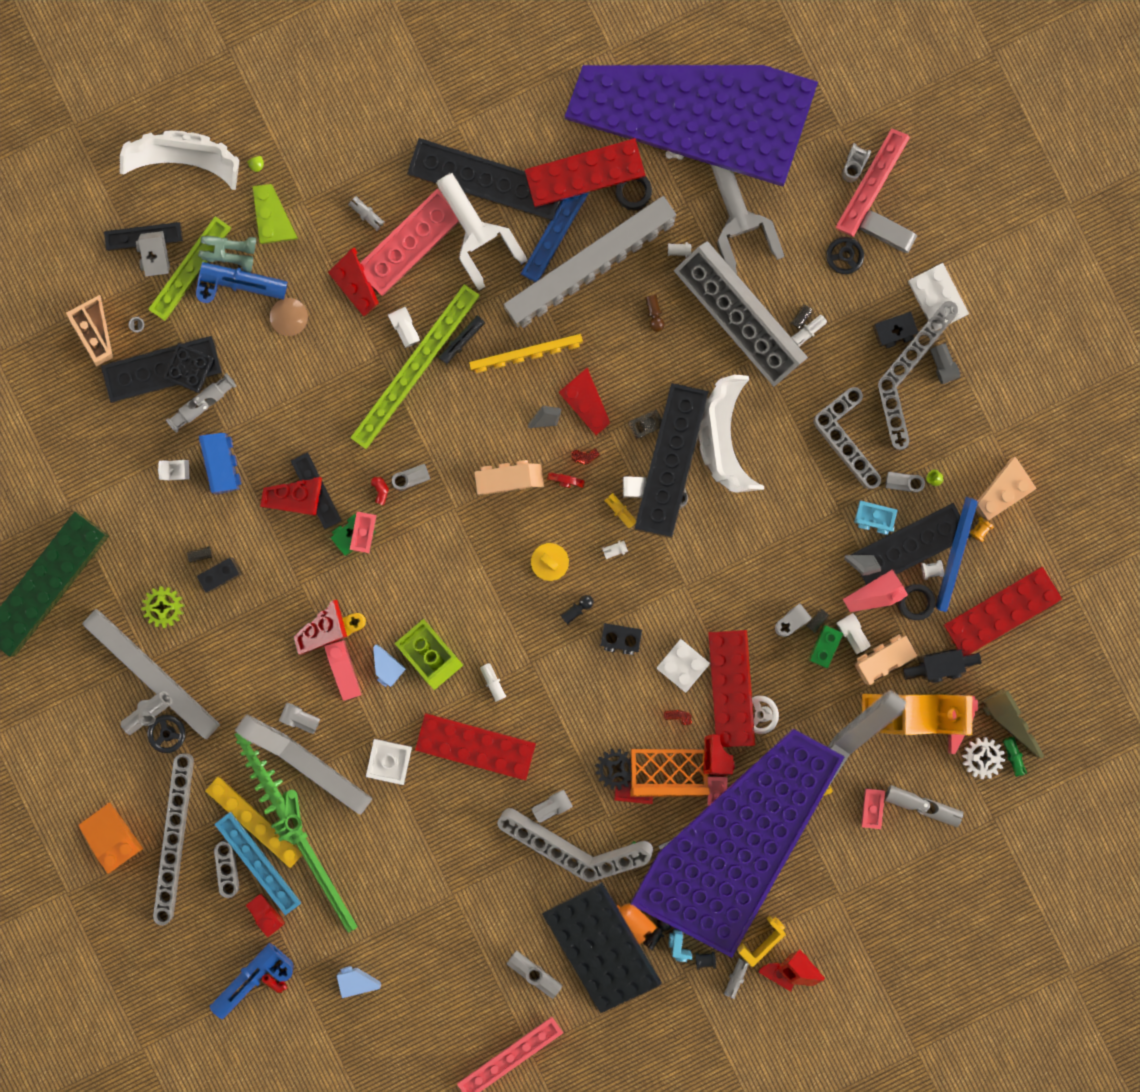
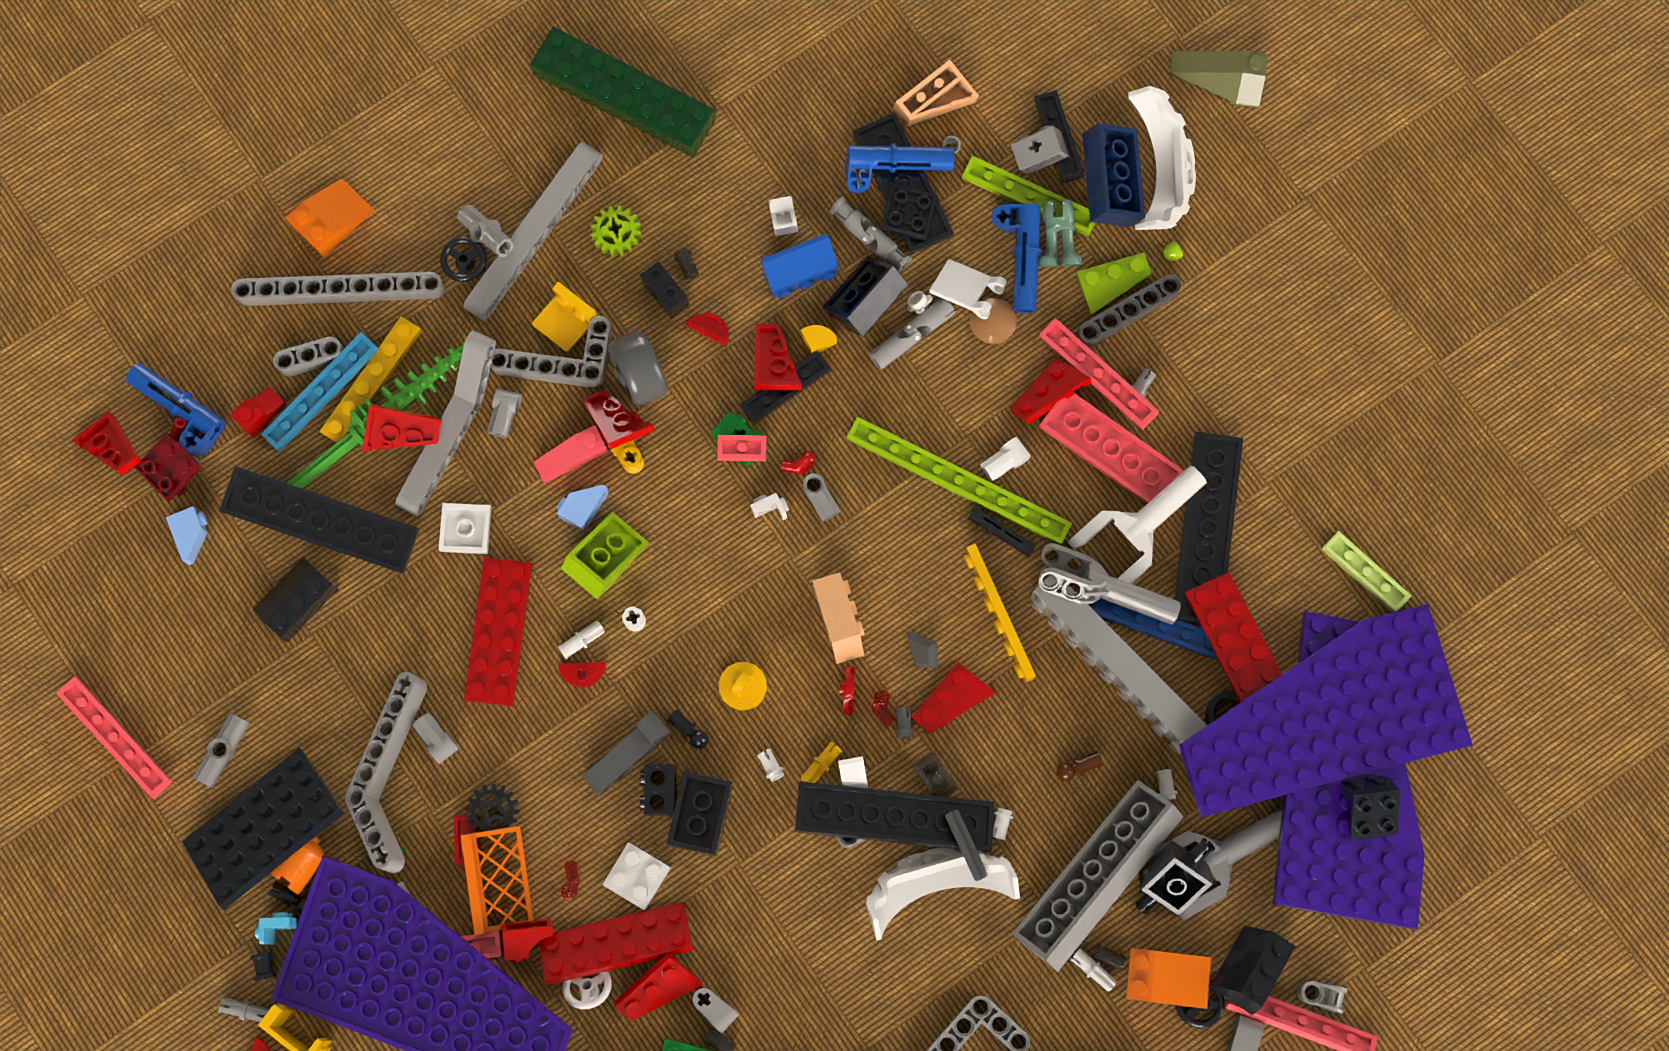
camera: 85 degrees right, 10 degrees down
(113, 91) = (1229, 74): none -> olive wedge
(139, 397) = (892, 158): none -> blue piece
(186, 198) = (1113, 175): none -> dark blue brick
(230, 659) = (564, 318): none -> yellow bracket
(251, 415) = (865, 295): none -> black slope
(255, 543) = (710, 326): none -> red plate
(256, 334) = (965, 286): none -> white flag
(264, 373) = (919, 302): none -> white plate
(267, 668) = (560, 364): none -> light grey beam
(273, 1038) = (108, 444): none -> red wing
(280, 458) = (818, 338): none -> yellow brick
(284, 605) = (638, 368): none -> dark grey wheel
(287, 380) = (898, 344): none -> light grey piece
(297, 198) = (1135, 302): none -> dark grey beam
(301, 802) = (399, 428): none -> red wing
(301, 991) = (168, 467): none -> dark red plate
(347, 240) = (1101, 374): none -> coral plate
(363, 876) = (319, 519): none -> black plate
(408, 522) = (766, 504): none -> white bracket
(423, 904) = (295, 600): none -> black slope
(480, 643) = (640, 621): none -> white bush
(519, 271) = (1097, 585): none -> light grey piece
(520, 685) = (582, 674): none -> red plate
(540, 63) = (1366, 572): none -> yellowish green tile
(589, 659) = (627, 753): none -> dark grey beam
(599, 442) = (903, 719): none -> dark grey pin
(645, 609) = (700, 814): none -> black brick
(649, 107) = (1340, 713): none -> dark purple wing
(688, 380) = (1001, 823): none -> white pin
(702, 409) = (966, 845): none -> dark grey axle
(723, 96) = (1373, 807): none -> black bracket
(752, 255) = (1175, 877): none -> black brick
(770, 662) = (657, 987): none -> red wing
(825, 275) = (1169, 978): none -> orange slope
(827, 211) = (1252, 968): none -> black slope

